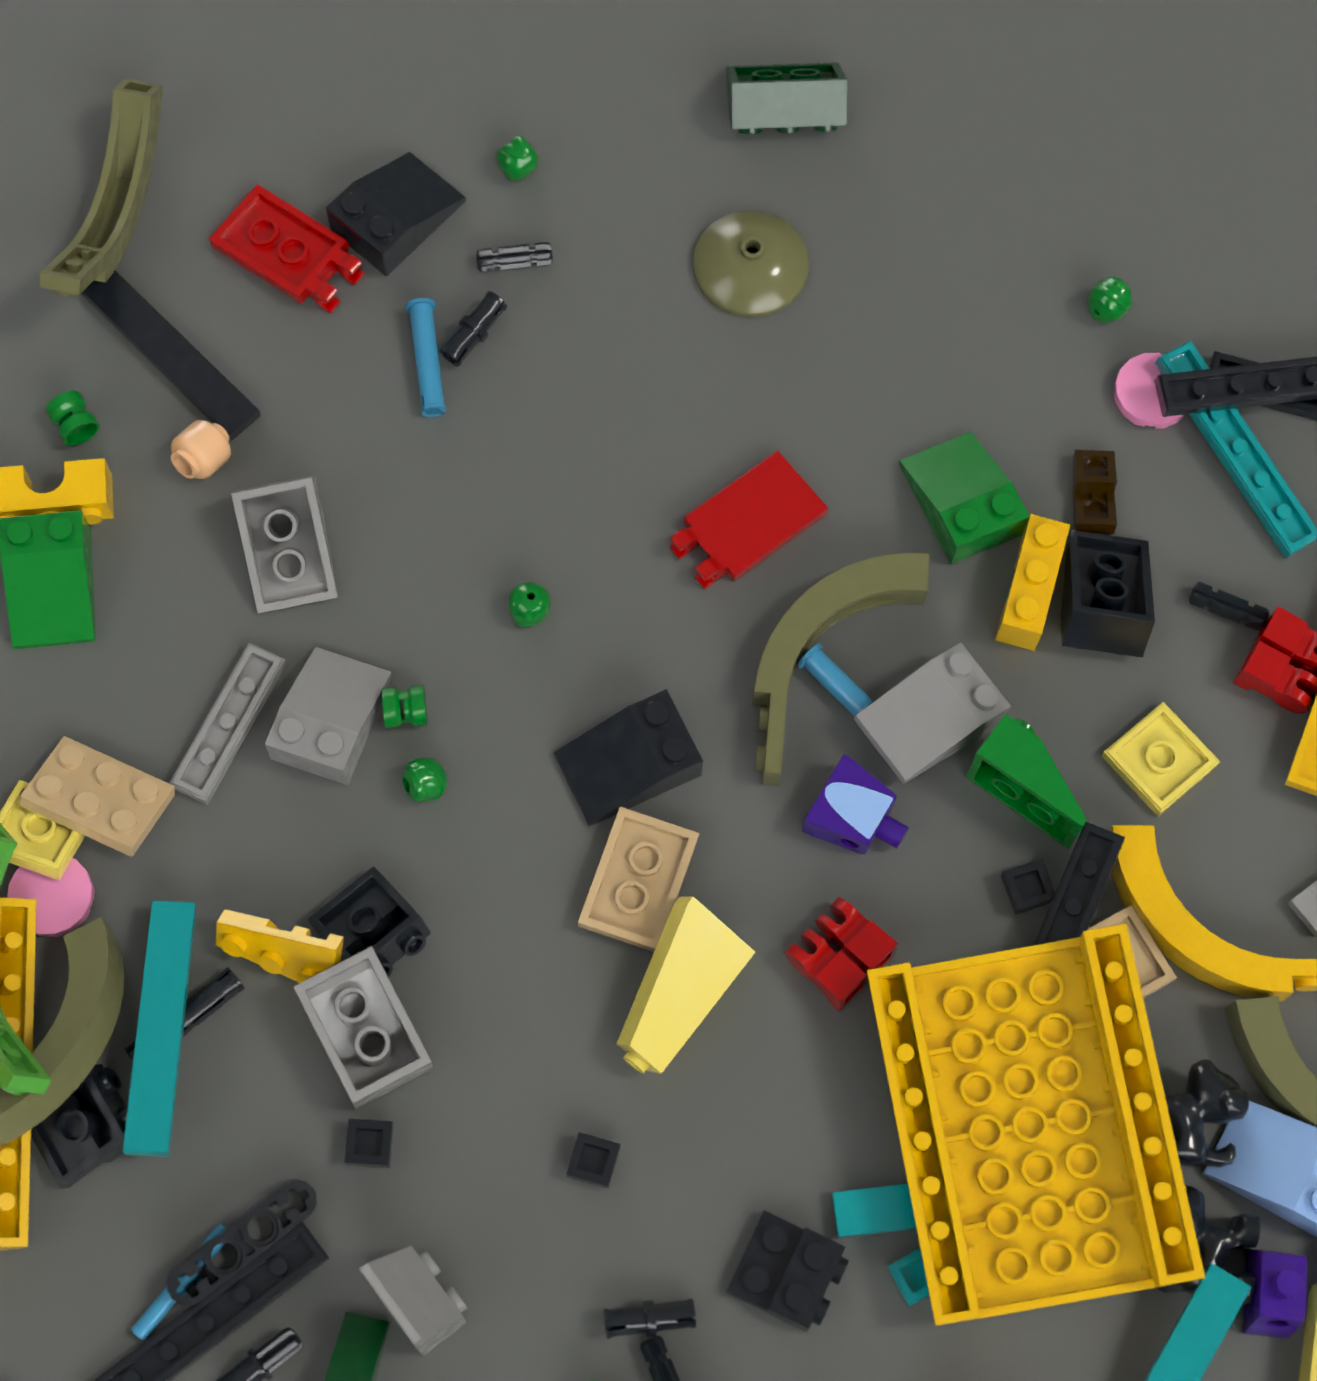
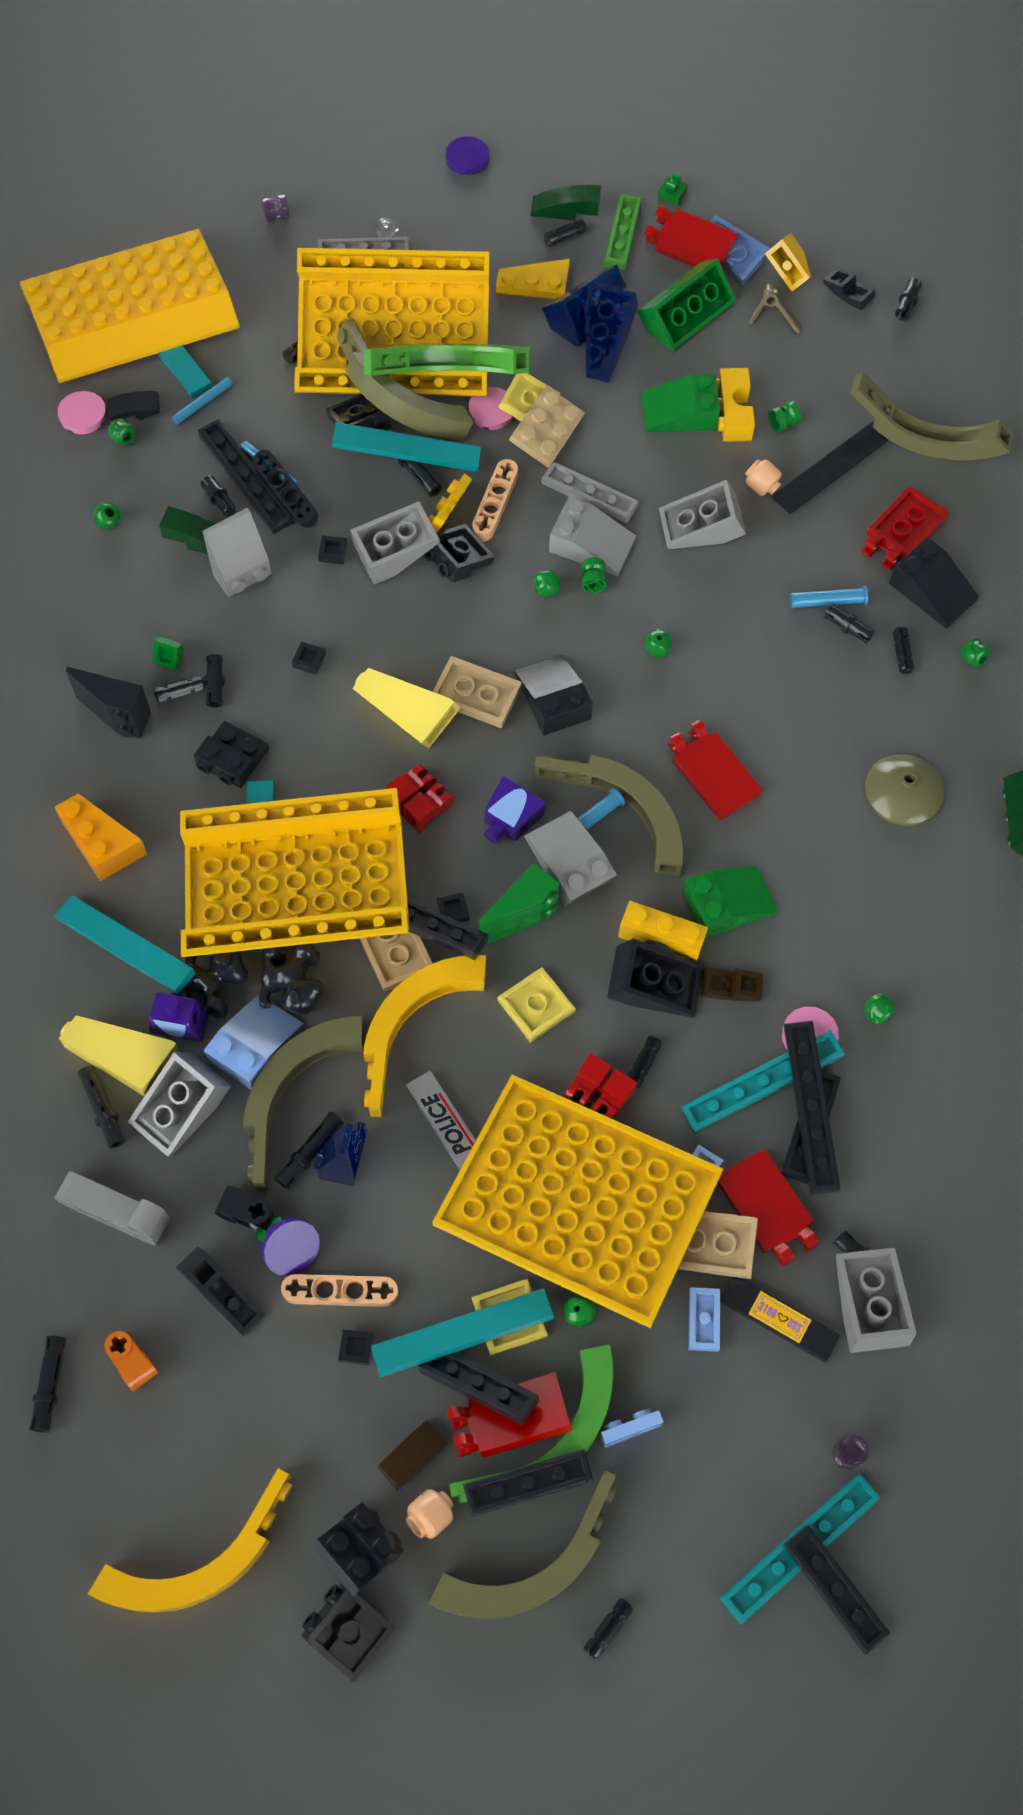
camera: 95 degrees right, 5 degrees down
(252, 870) = (493, 499): none -> light nougat beam

